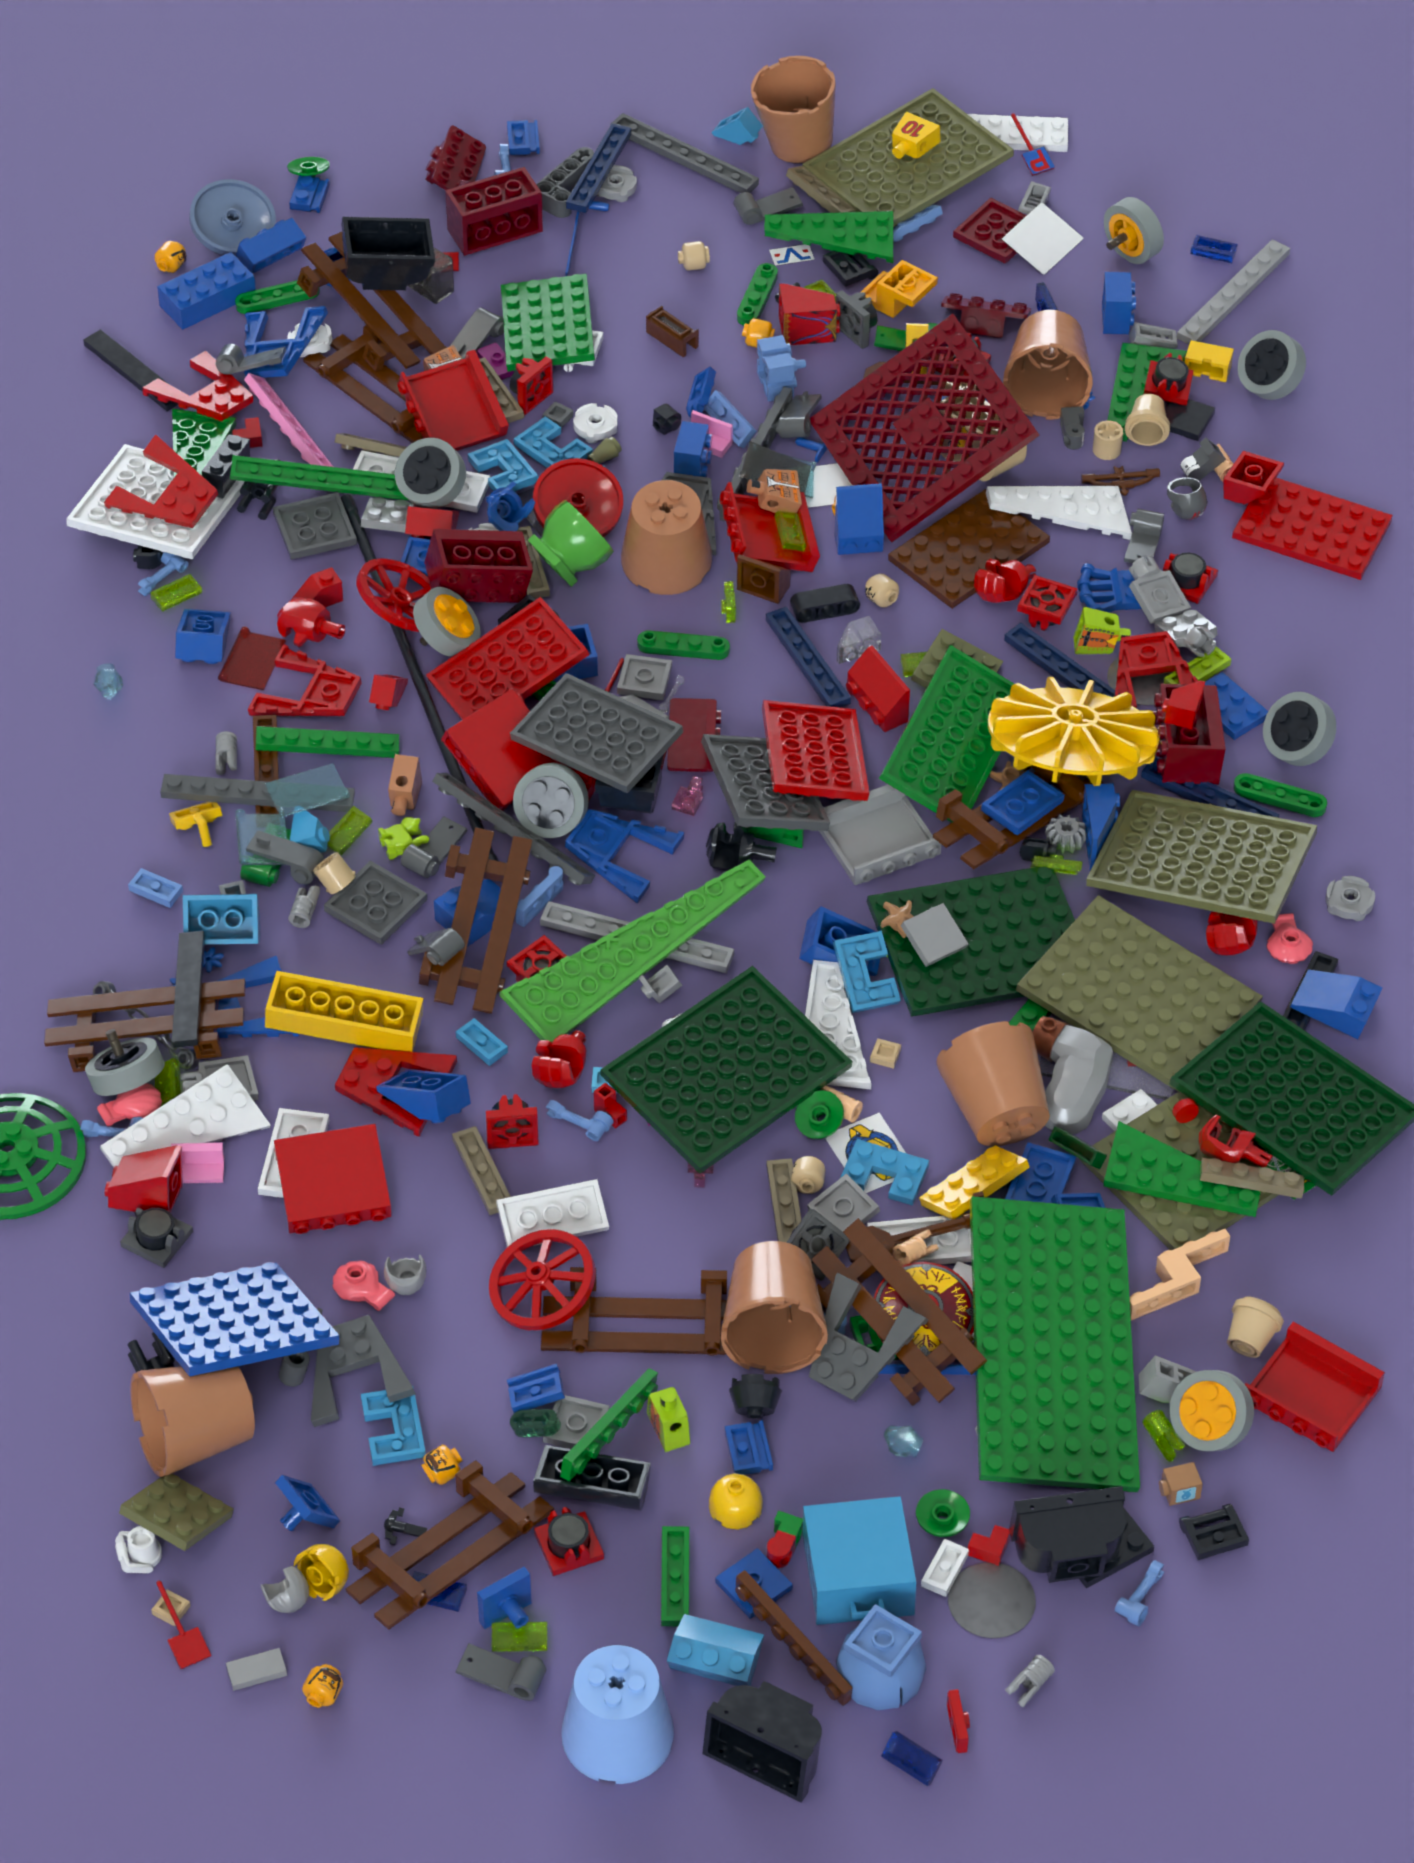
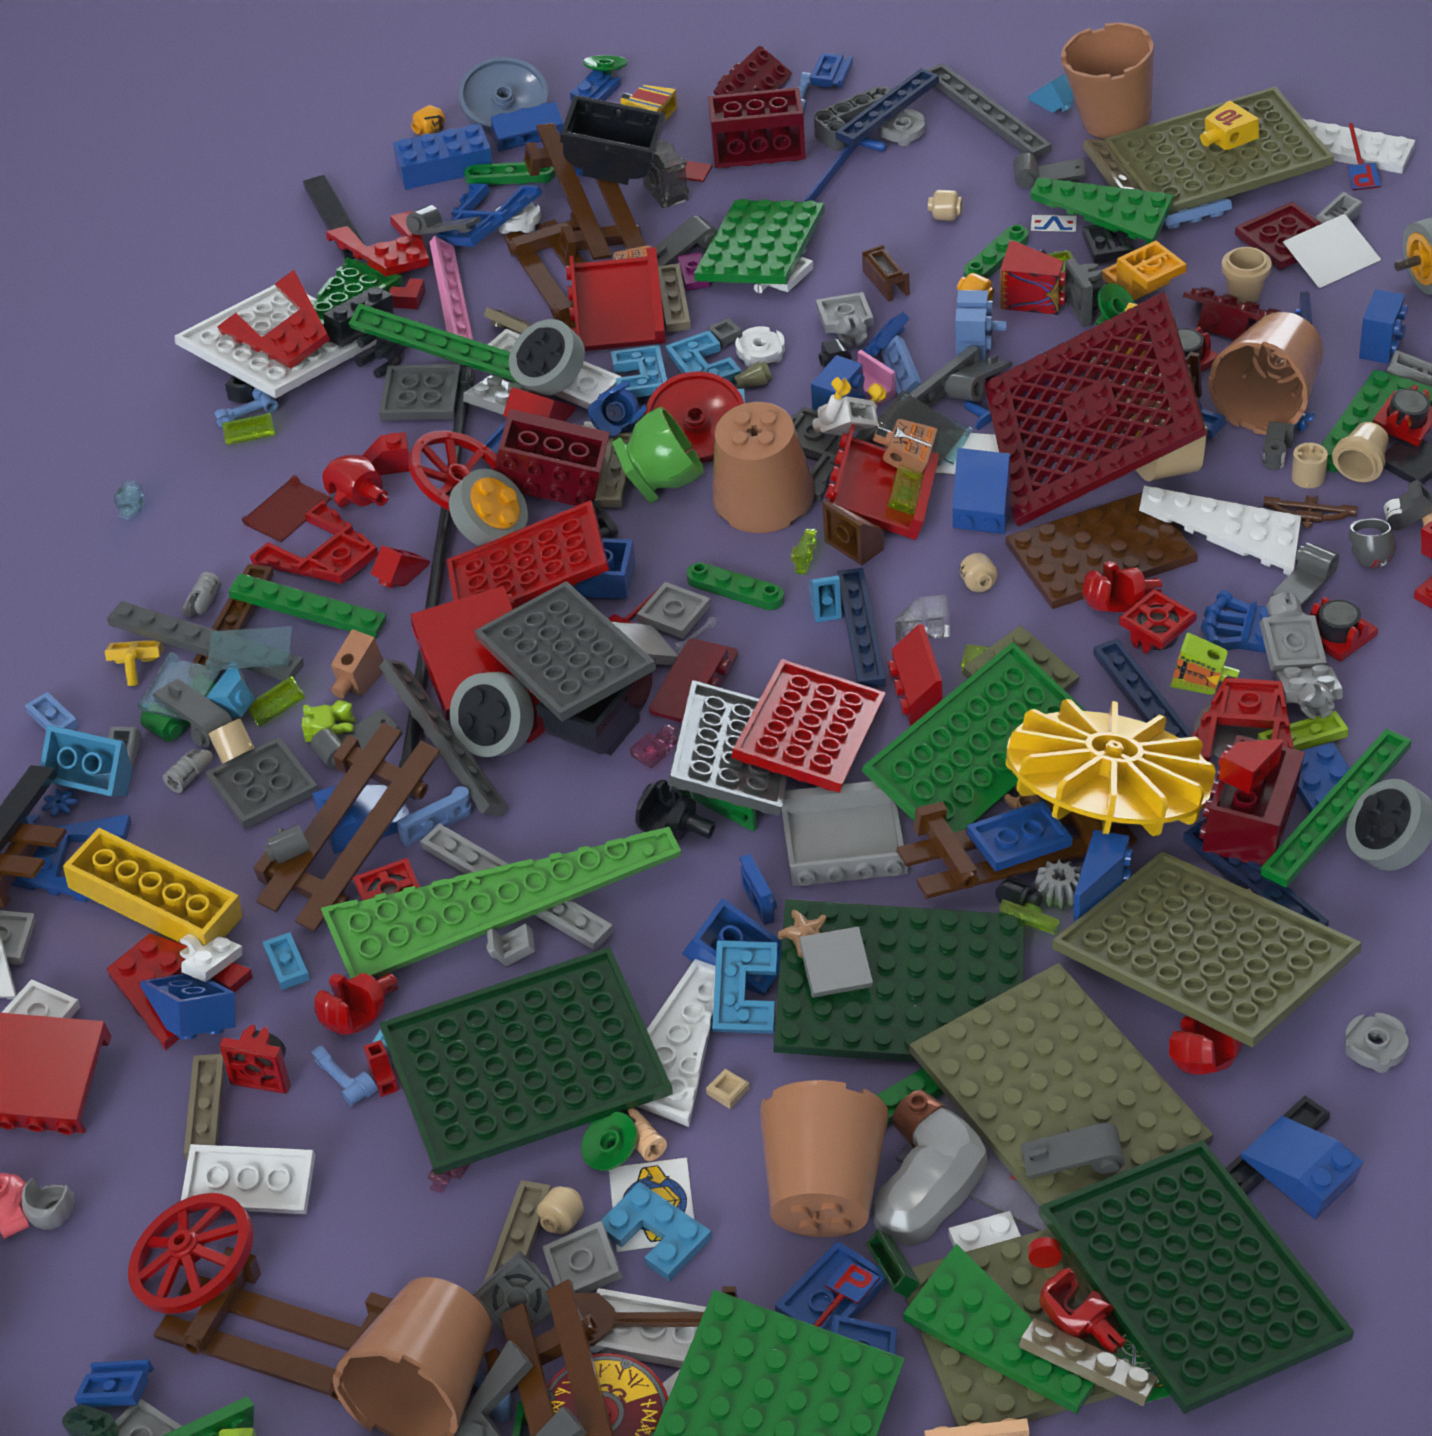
camera: 25 degrees right, 5 degrees down
(202, 635) = (246, 475): blue slope -> none
(372, 200) = (652, 98): none -> yellow torso
(421, 1055) = (208, 960): none -> white plate
(532, 382) = (708, 295): red piece -> none
(601, 837) = (538, 766): blue wing -> none
(658, 379) = (846, 317): none -> light grey plate
(718, 470) = (842, 412): none -> white torso
(769, 639) = (825, 598): none -> dark azure slope
(825, 603) = (909, 573): black beam -> none
(835, 893) = (757, 889): none -> blue plate
(890, 326) = (1113, 300): none -> green dish
(914, 1249) = (627, 1337): light nougat hinge -> none
(982, 1174) = (750, 1271): yellow plate -> none
(985, 274) = (1246, 272): none -> tan piece
(1053, 1169) = (850, 1283): none -> piece
(1174, 1031) = (1088, 1145): none -> dark grey door
(1251, 724) = (1334, 808): none -> green plate
(1280, 795) = (1344, 900): green plate -> none
(1288, 942) = (1275, 1076): coral animal -> none

